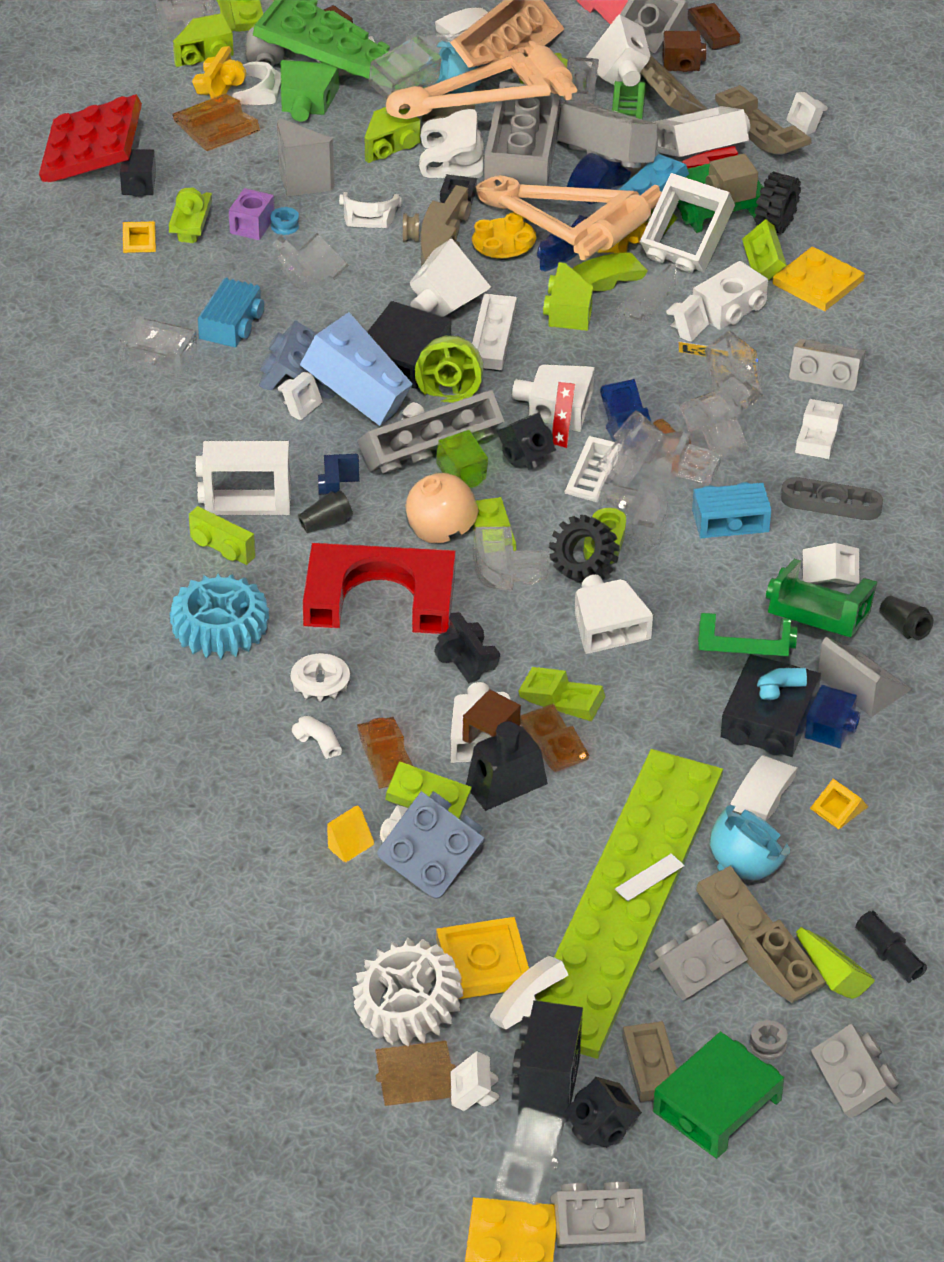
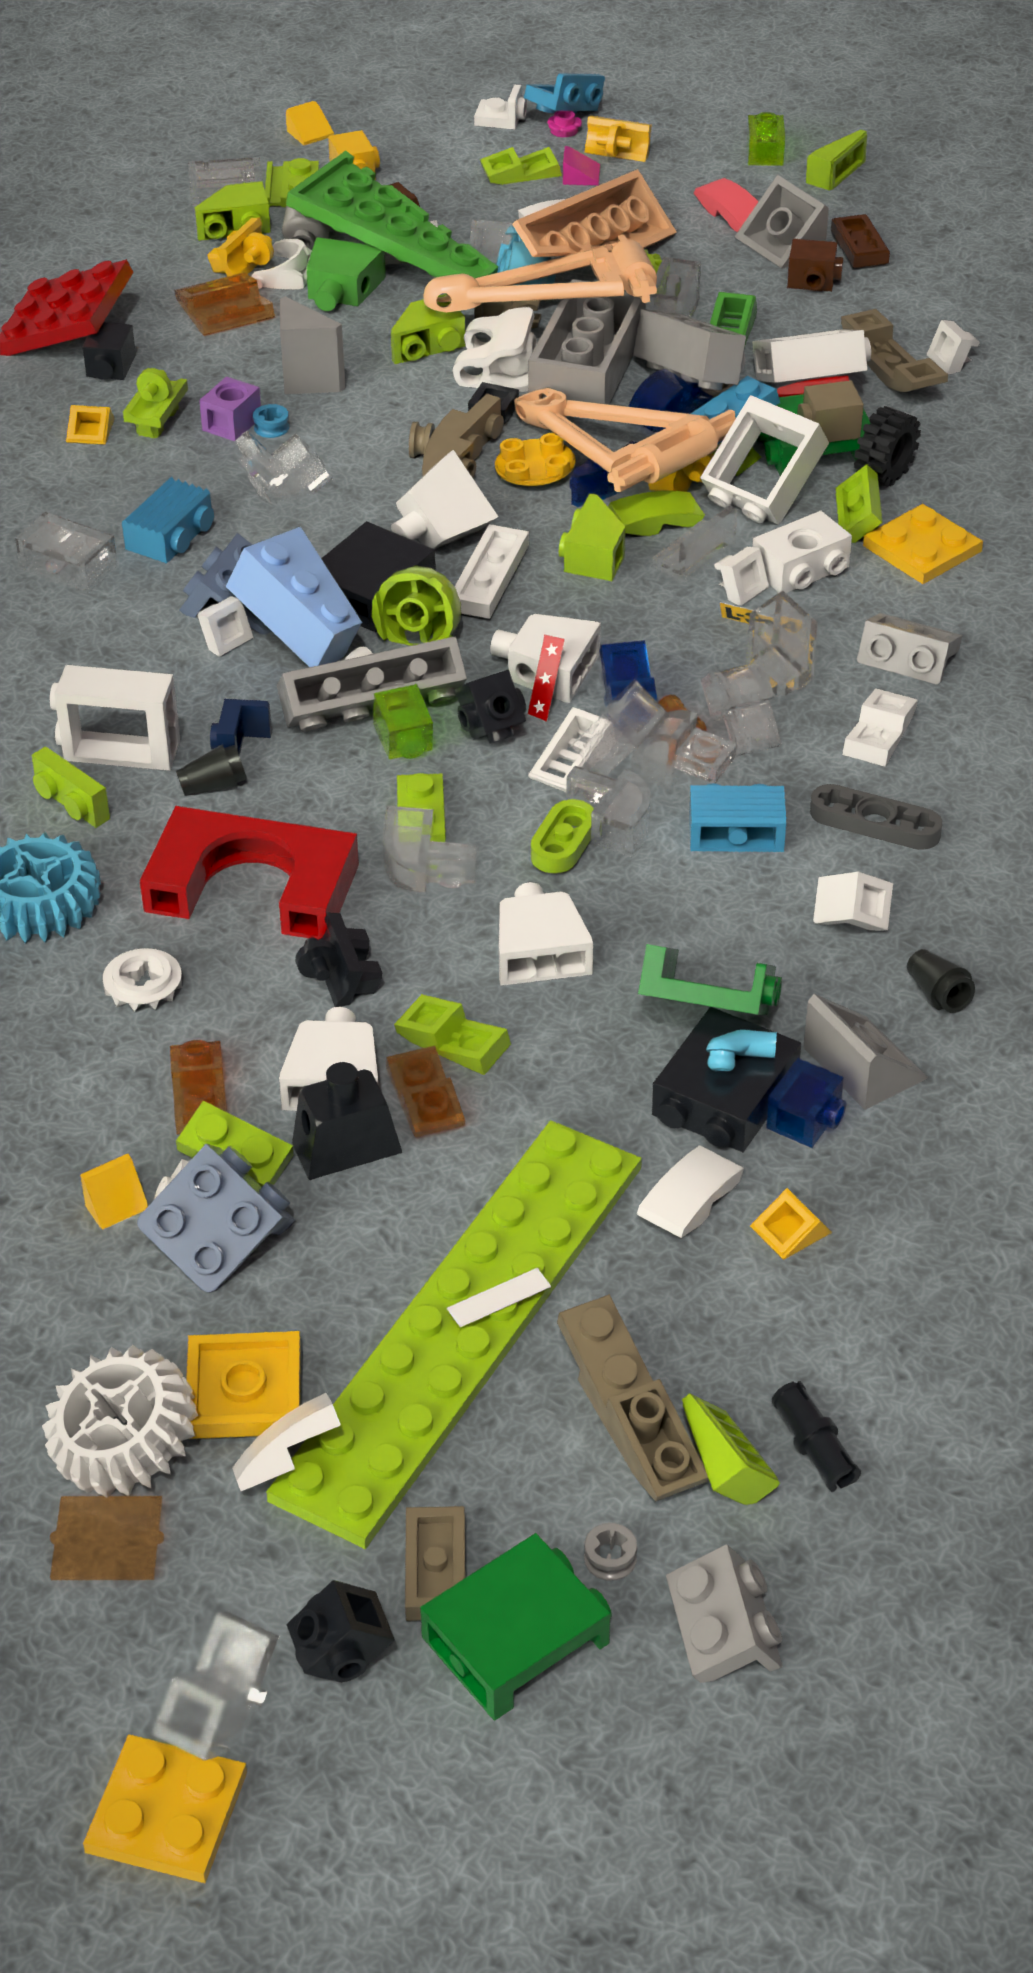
camera: 10 degrees right, 0 degrees up
(322, 733) = (124, 1055): white arm -> none
(367, 209) = (398, 416): white helmet -> none
(405, 66) = (460, 249): clear brick -> none
(440, 507) = (356, 777): light nougat cylinder -> none
(473, 1082) = (173, 1561): white tile -> none
(488, 714) = (326, 1046): reddish brown panel -> none
(548, 1058) = (281, 1544): black brick -> none
(567, 541) = (507, 837): black tyre -> none
(599, 1215) = (296, 1787): light grey bracket -> none
(621, 52) = (728, 261): white torso -> none
(670, 89) = (779, 297): dark tan wing -> none
(700, 959) = (541, 1421): light grey bracket -> none
(746, 844) = (642, 1267): medium azure cylinder -> none
(819, 605) = (821, 952): green panel -> none

